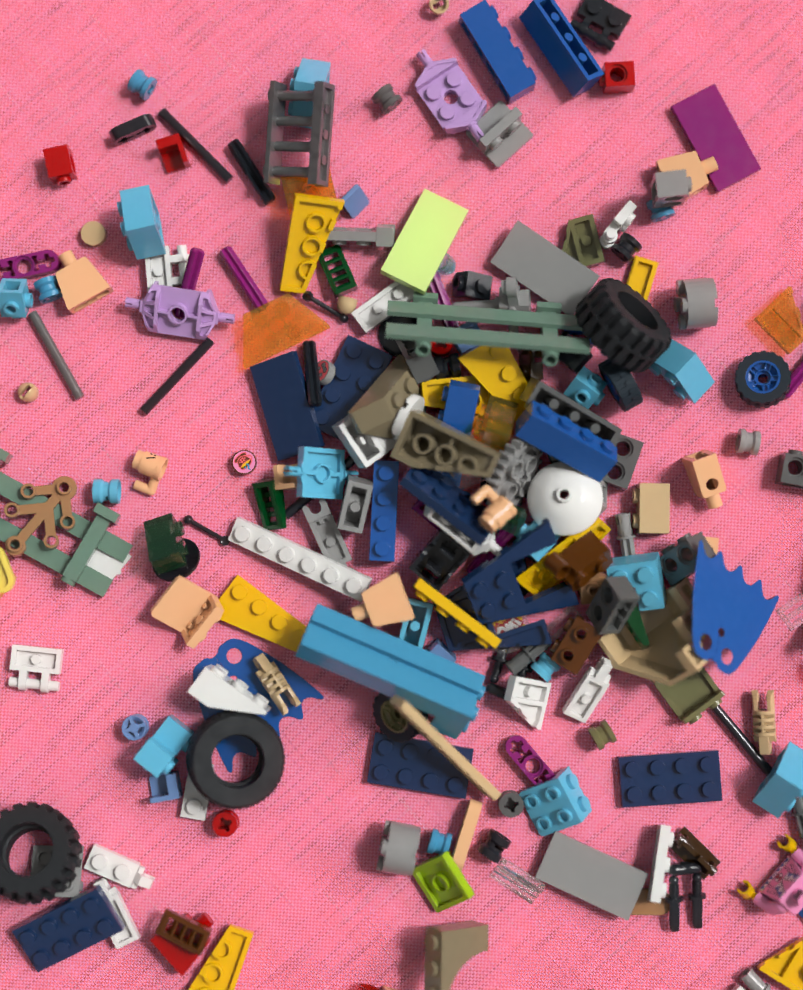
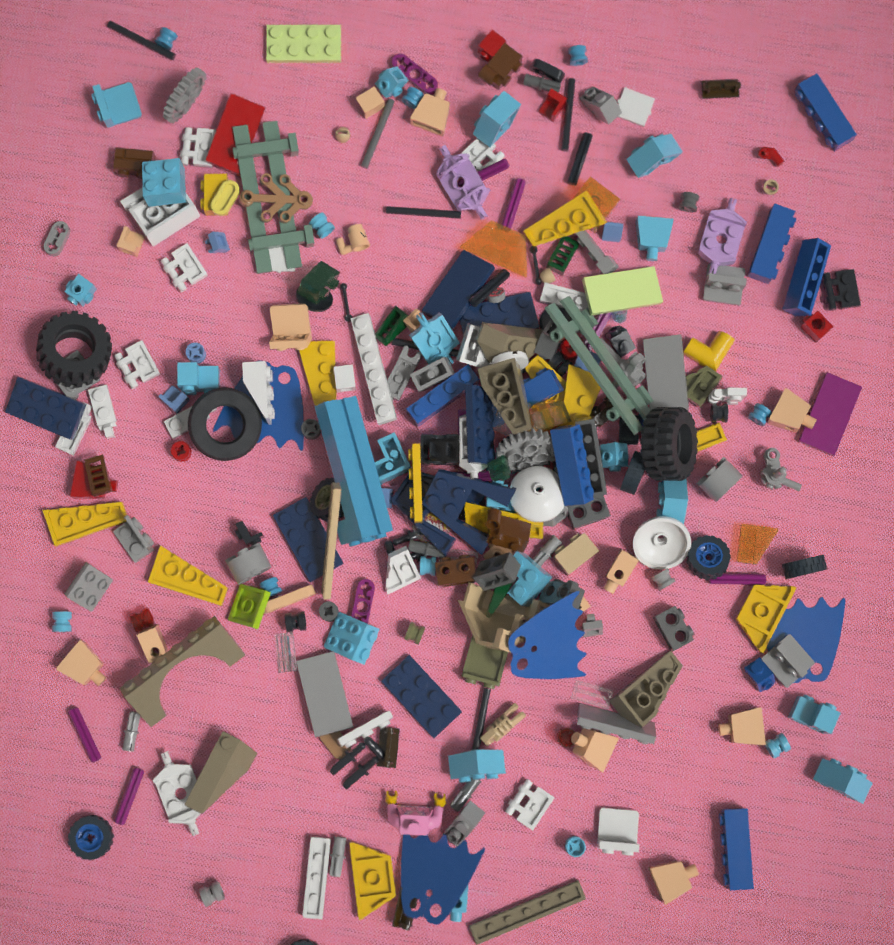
camera: 45 degrees right, 5 degrees down
(17, 336) = (370, 102): none -> light nougat panel
(37, 611) = (218, 242): none -> medium blue tile
(90, 172) = (501, 67): none -> reddish brown hinge
(93, 233) = (467, 98): tan tile -> none
(100, 789) = (143, 362): none -> white plate
(140, 146) = (541, 83): none -> dark grey axle
(213, 103) = (601, 104): none -> light grey slope
(242, 72) = (635, 106): none -> white piece
(244, 462) = (404, 291): tile -> none
(274, 683) = (288, 413): tan hinge -> none
(278, 942) = (133, 539): none -> light grey bracket
(285, 596) = (344, 378): none -> white panel
(309, 675) = (308, 426): none -> dark grey wheel
(321, 133) = (631, 179): flat silver fence -> none
(354, 925) = (180, 576): none -> yellow wing
(362, 826) = (243, 533): none -> black bracket
(385, 603) = (388, 435): light nougat torso -> none
(391, 163) = (653, 235): none -> medium azure torso
(497, 513) = (496, 456): light nougat piece -> none
(561, 204) = (710, 355): none -> yellow brick
(589, 691) = (434, 603): white hinge -> none
(670, 188) = (773, 406): light grey brick -> none
(721, 415) = (661, 552): none -> white dish
(732, 246) = (774, 475): none -> light grey piece
(738, 552) = (592, 627): none -> light grey tile

